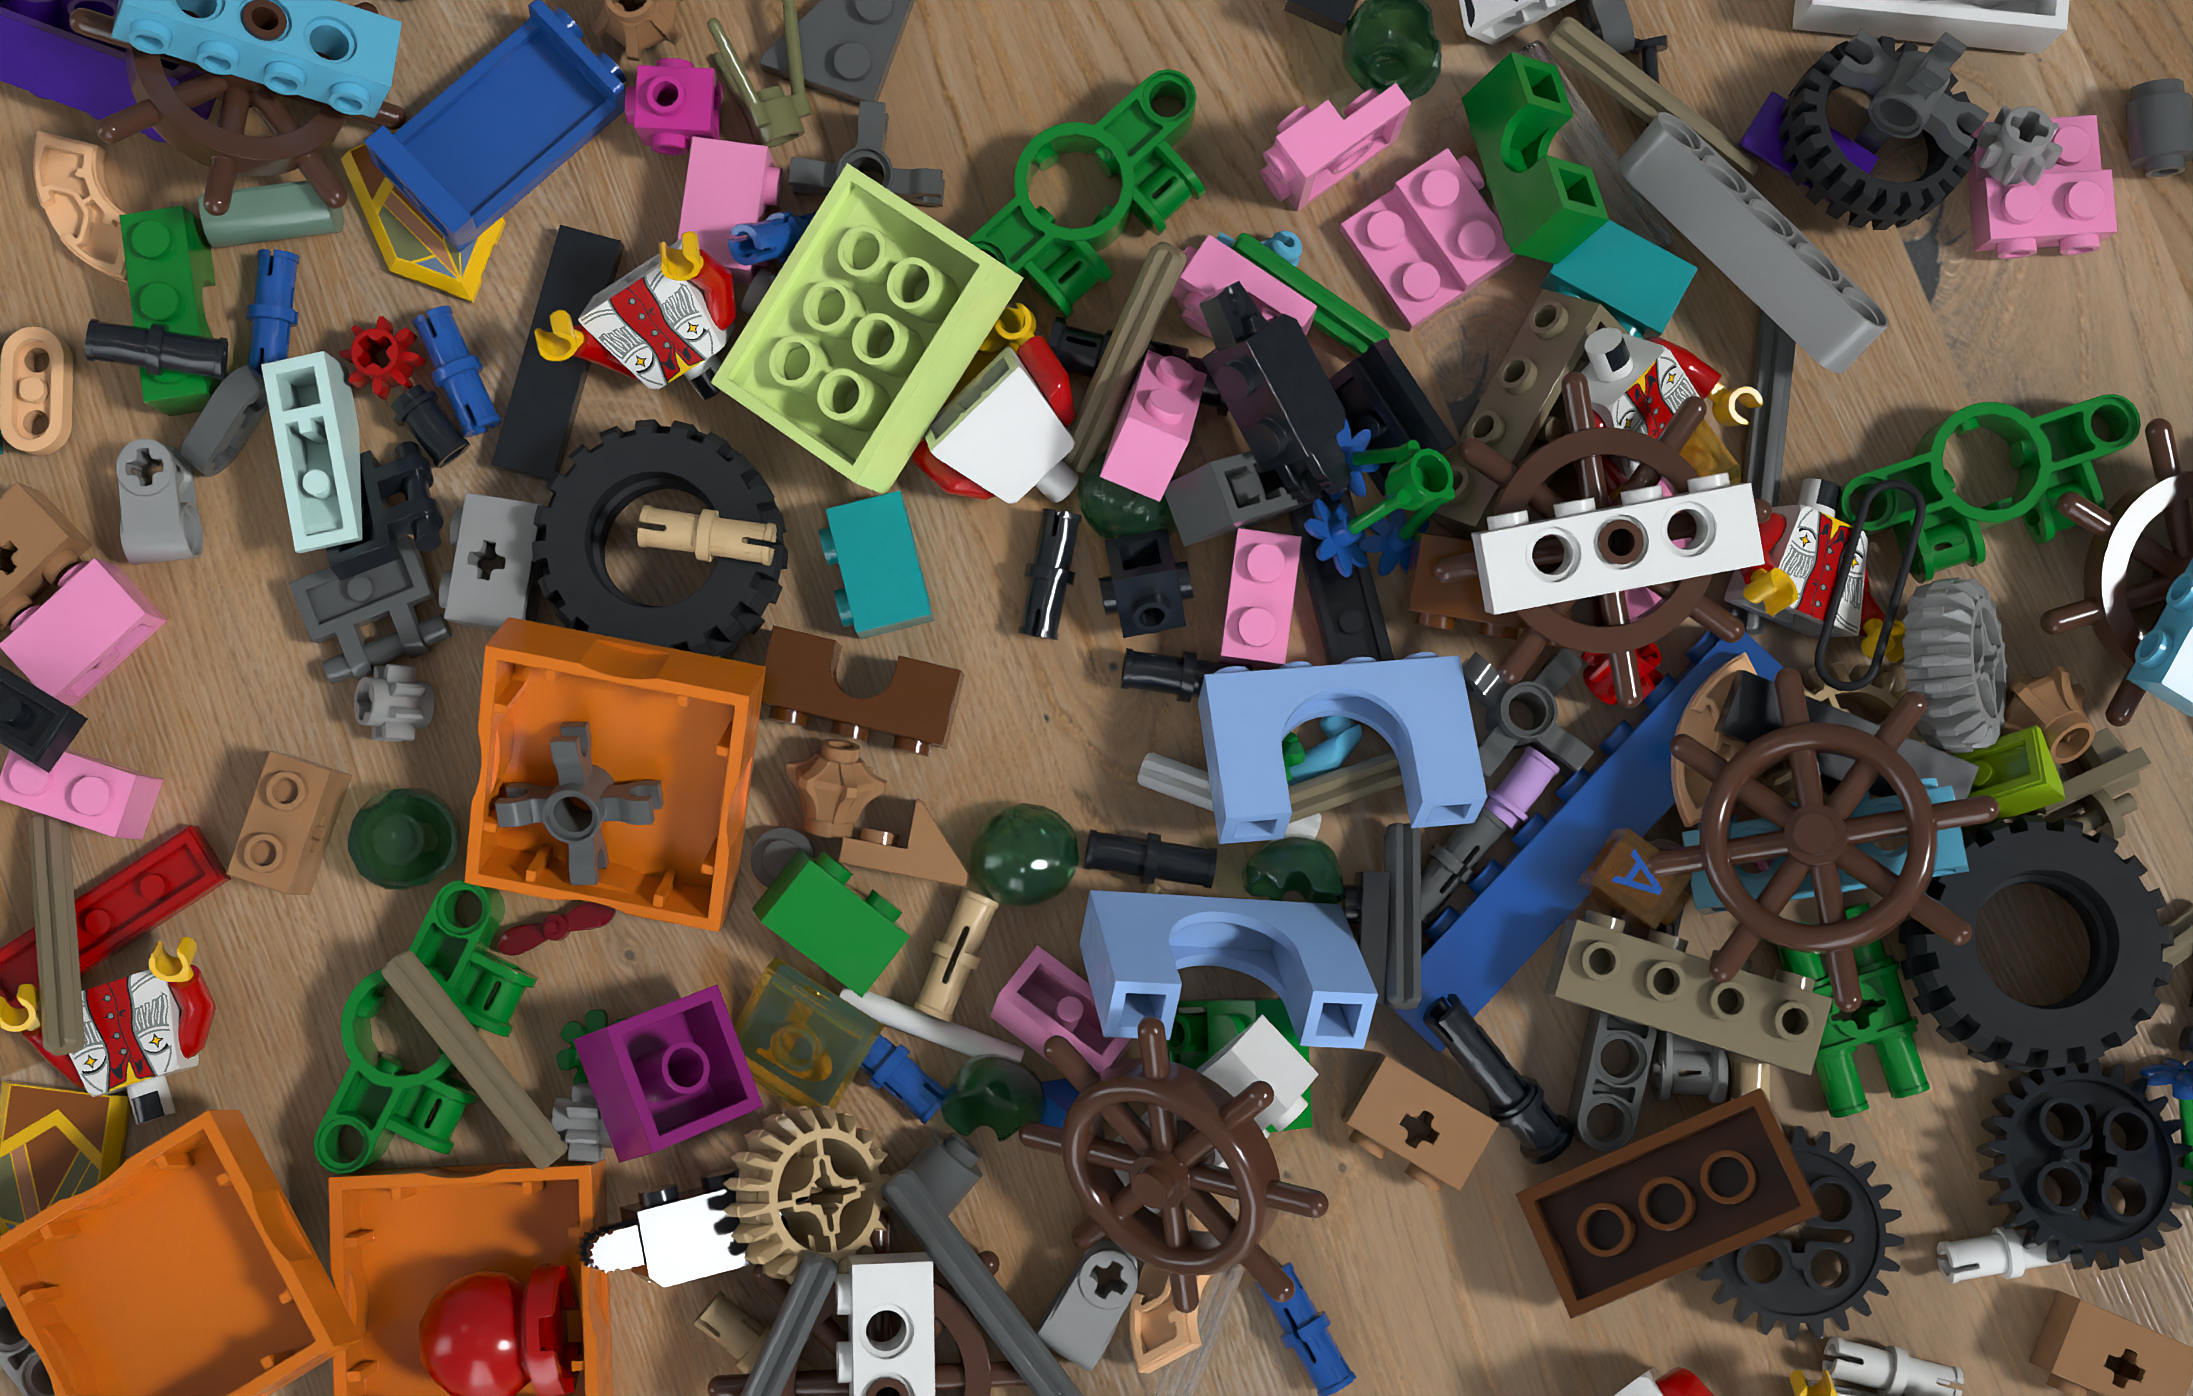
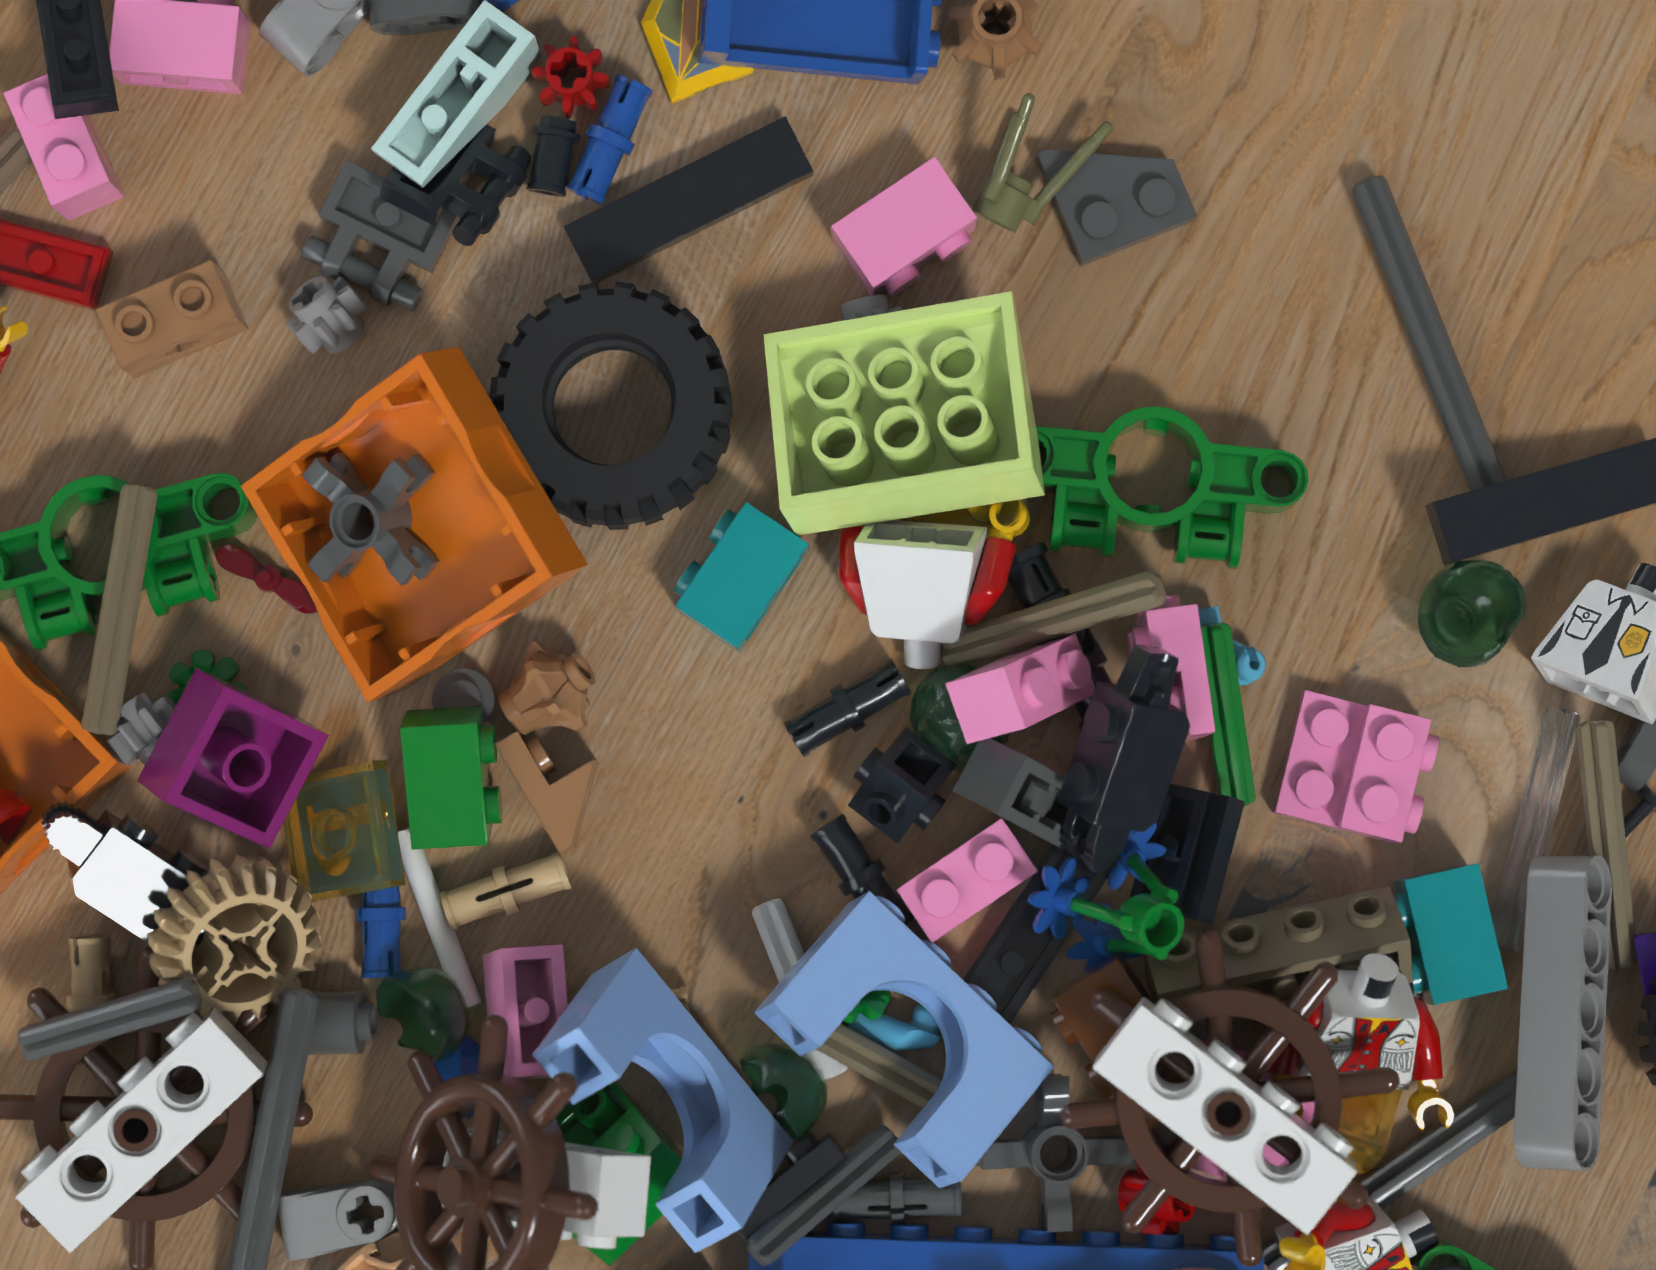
camera: 50 degrees right, 0 degrees up
(404, 838) = (235, 412): clear green hair -> none
(480, 533) = (474, 324): light grey brick -> none
(654, 320) = (772, 252): torso -> none
(674, 105) = (951, 142): dark pink brick -> none
(706, 535) = (645, 436): tan pin -> none
(768, 239) = (909, 283): blue pin -> none
(913, 708) = (657, 696): reddish brown arch -> none
(917, 185) = (1055, 285): dark grey pin -> none
(1024, 855) = (623, 875): clear green hair -> none
(1150, 858) = (703, 970): black pin -> none
(1322, 148) = (1340, 626): bright pink plate -> none
(1521, 788) = (998, 1200): lavender pin -> none
(1540, 199) = (1497, 751): green arch -> none

